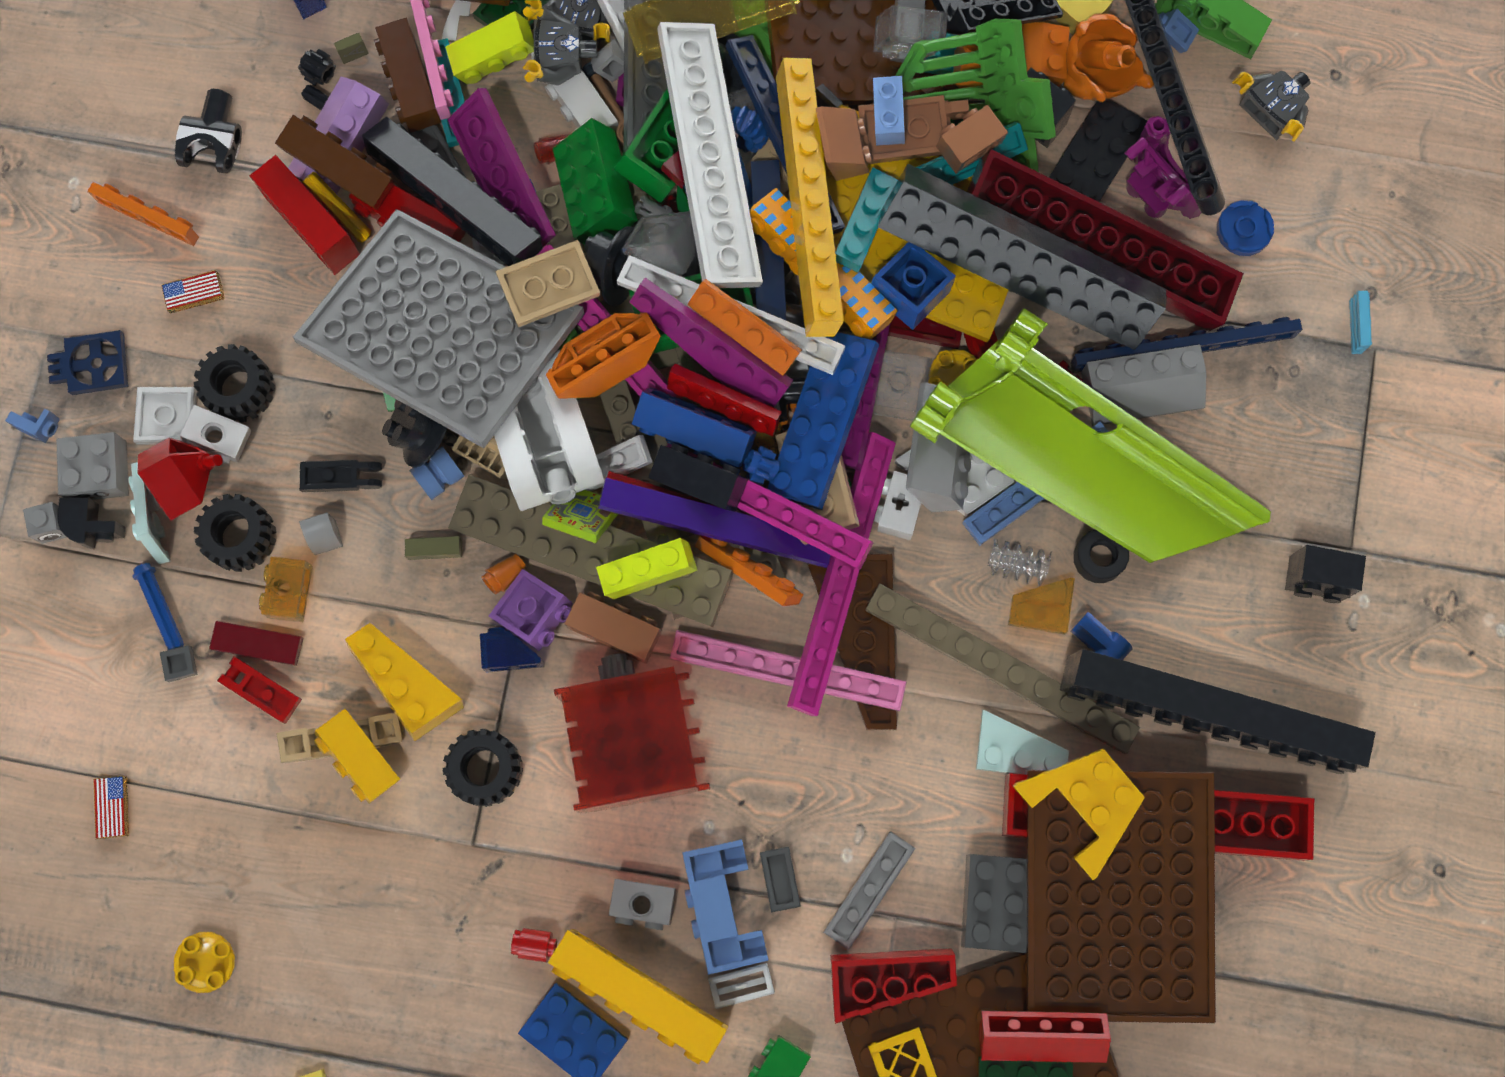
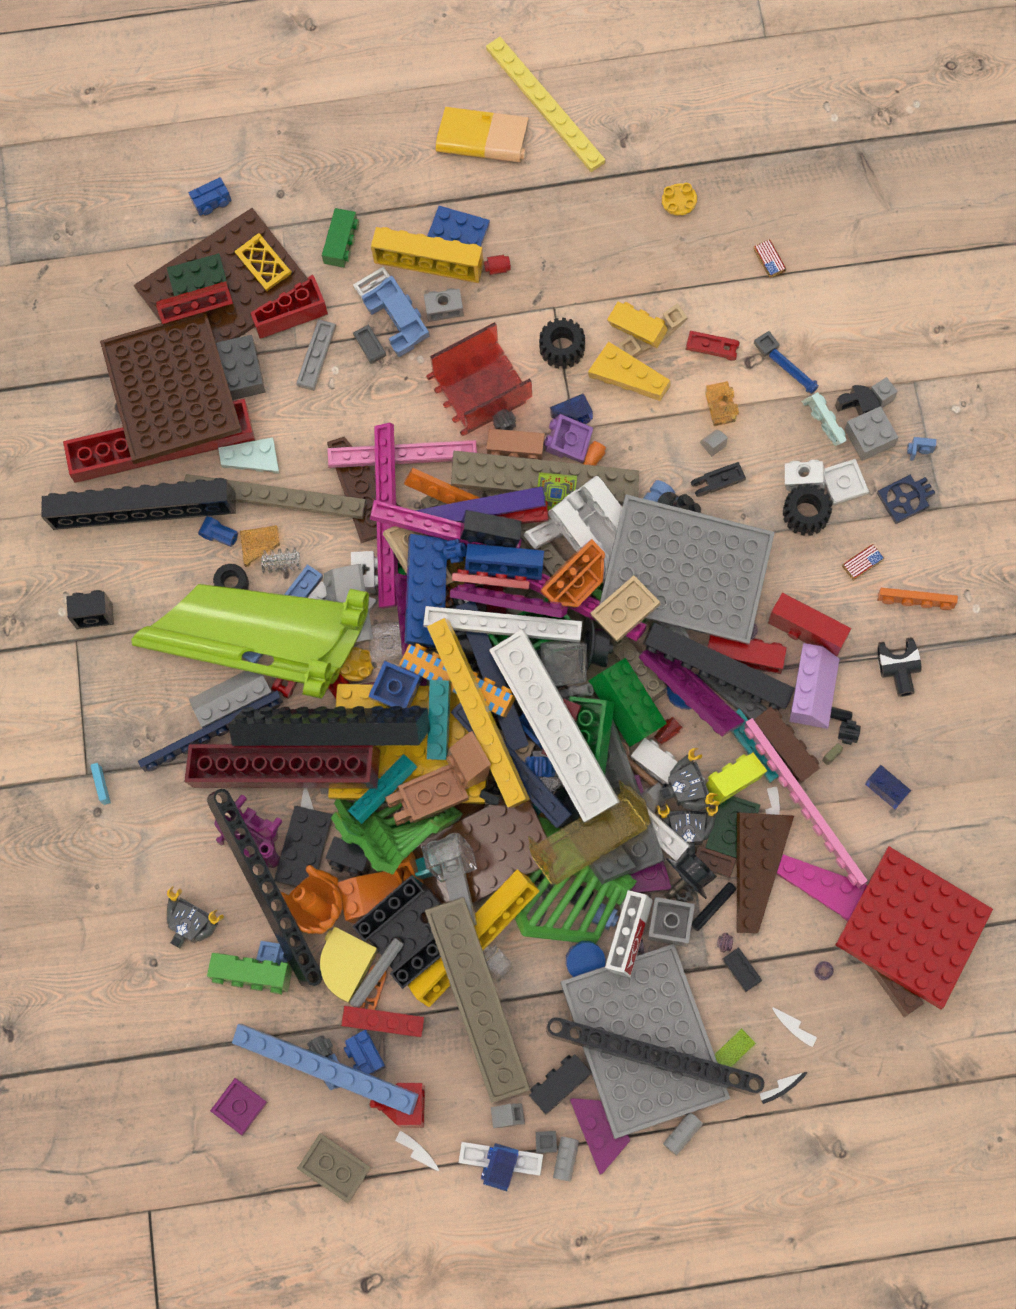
camera: 165 degrees right, 5 degrees down
(176, 474) = (814, 437): red piece -> none
(219, 517) = (770, 410): black tyre -> none
(256, 643) = (726, 370): dark red tile -> none
(335, 162) = (799, 655): reddish brown brick -> none
(336, 207) = (791, 637): yellow axle -> none
(433, 548) = (643, 457): olive piece -> none
(646, 568) = (501, 465): neon yellow brick -> none
(744, 327) = (489, 612): orange plate -> none
(888, 110) = (445, 791): light blue brick -> none
(971, 138) = (385, 789): nougat brick -> none
(1098, 794) = (197, 427): yellow wing -> none
(1245, 228) = (190, 828): blue tile -> none

